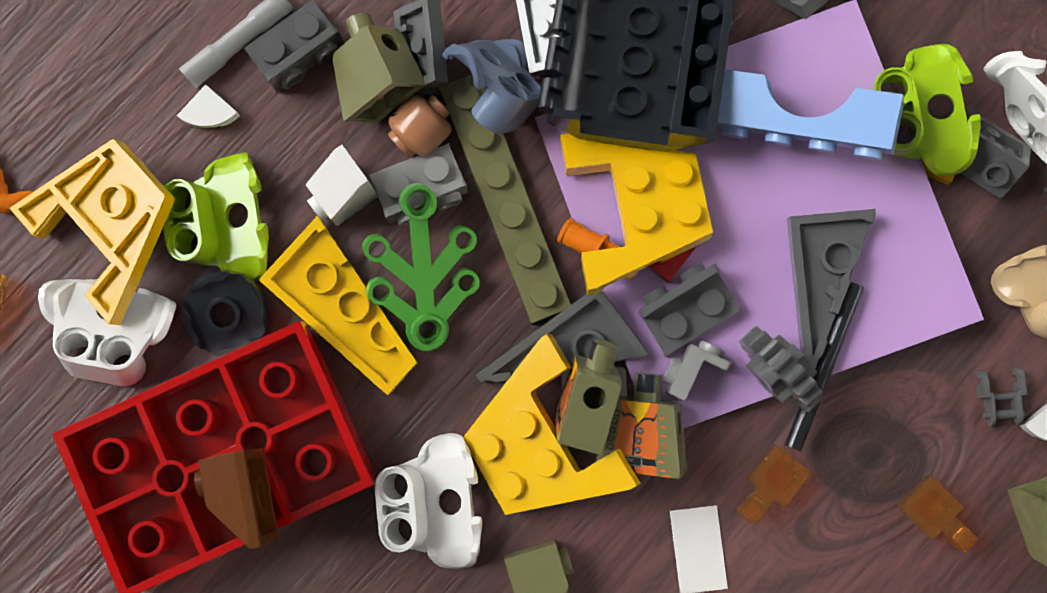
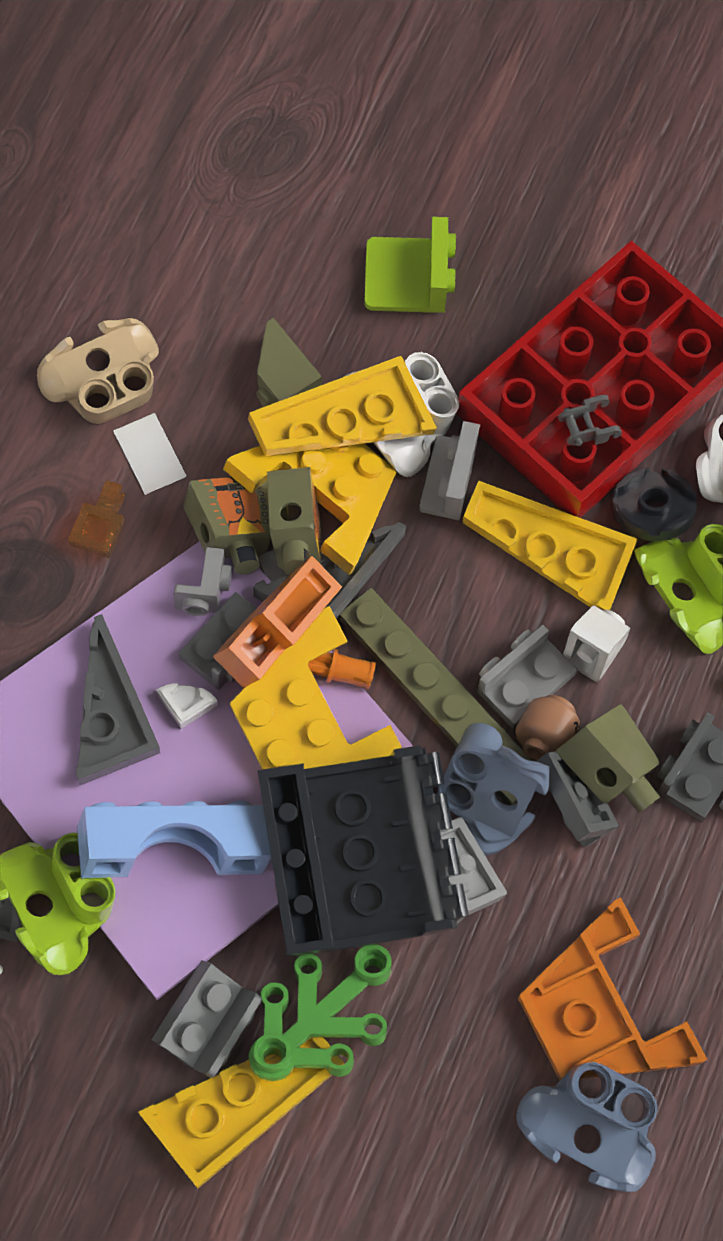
camera: 160 degrees right, 15 degrees down
(239, 494) = (566, 335): reddish brown slope -> none
(275, 398) = (597, 435): none -> dark grey piece
(411, 414) = (450, 473): none -> light grey bracket
(423, 275) = (488, 588): bright green plant -> none
(485, 502) = (352, 410): none -> yellow wing
(642, 290) = (277, 622): none -> orange slope
(747, 261) = (186, 702): none -> white tile
(781, 369) = (126, 598): dark grey gear -> none
(825, 365) = (83, 625): black bar -> none

